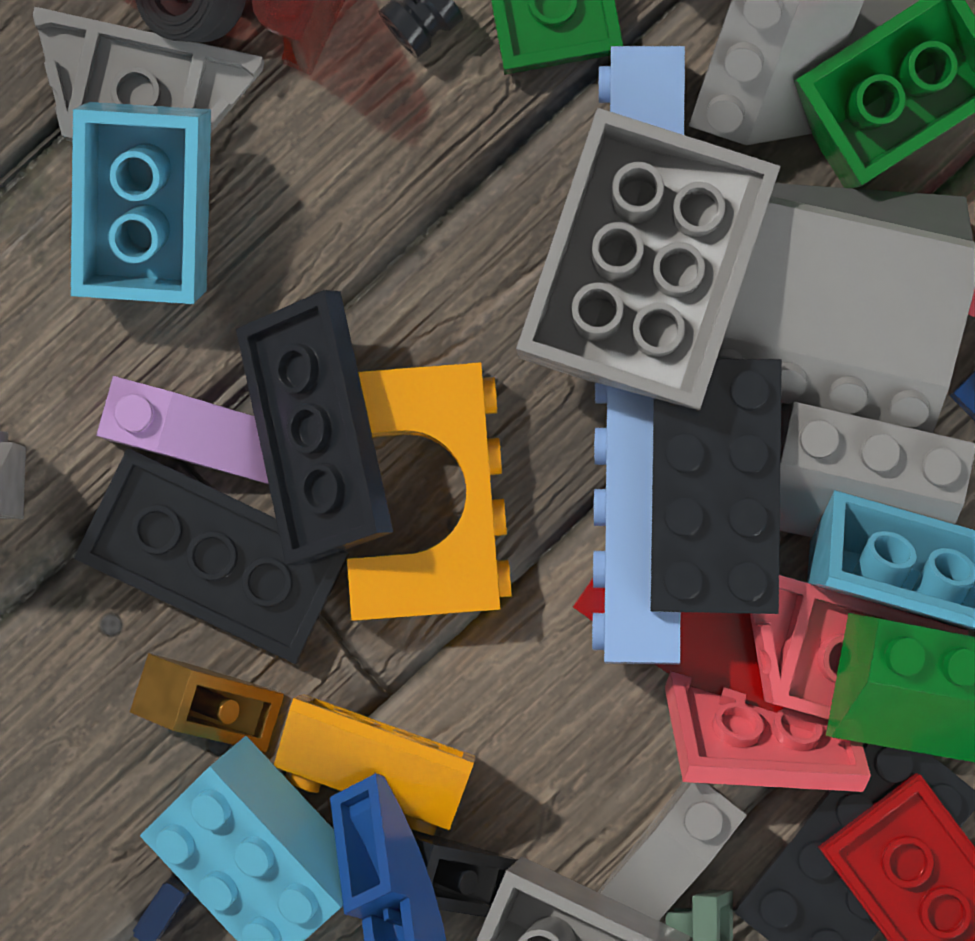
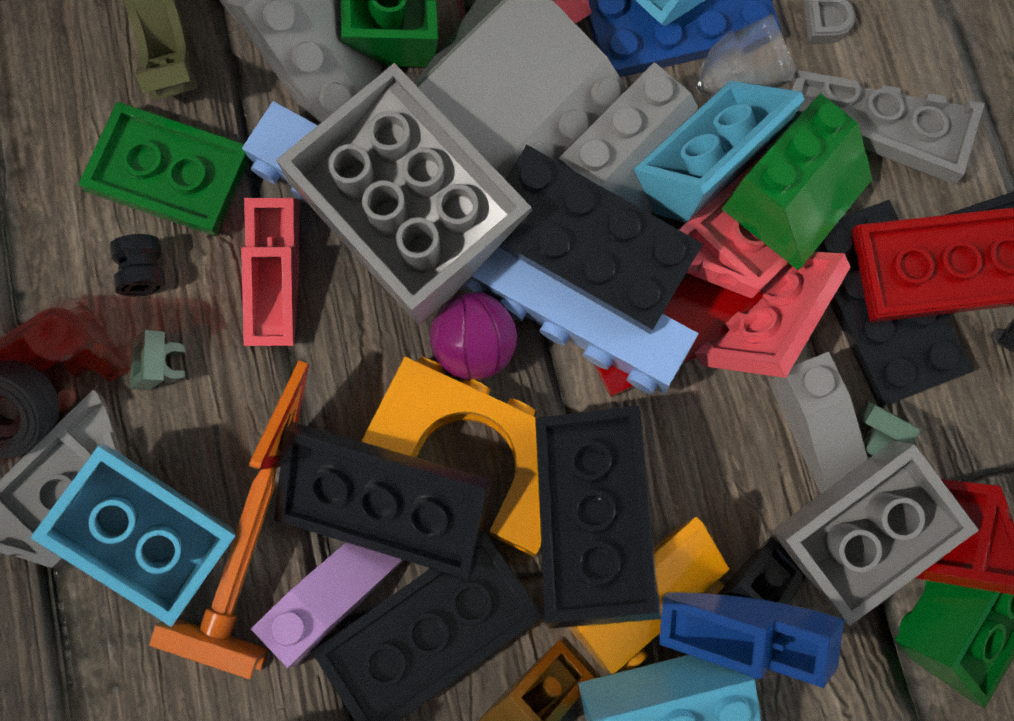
camera: 70 degrees left, 10 degrees down
(82, 341) = (212, 640): none -> orange piece
(325, 94) = (149, 363): none -> sand green tile
(415, 659) = (595, 519): none -> black plate
(498, 159) = (270, 271): none -> coral slope
(546, 422) = (473, 336): none -> magenta piece

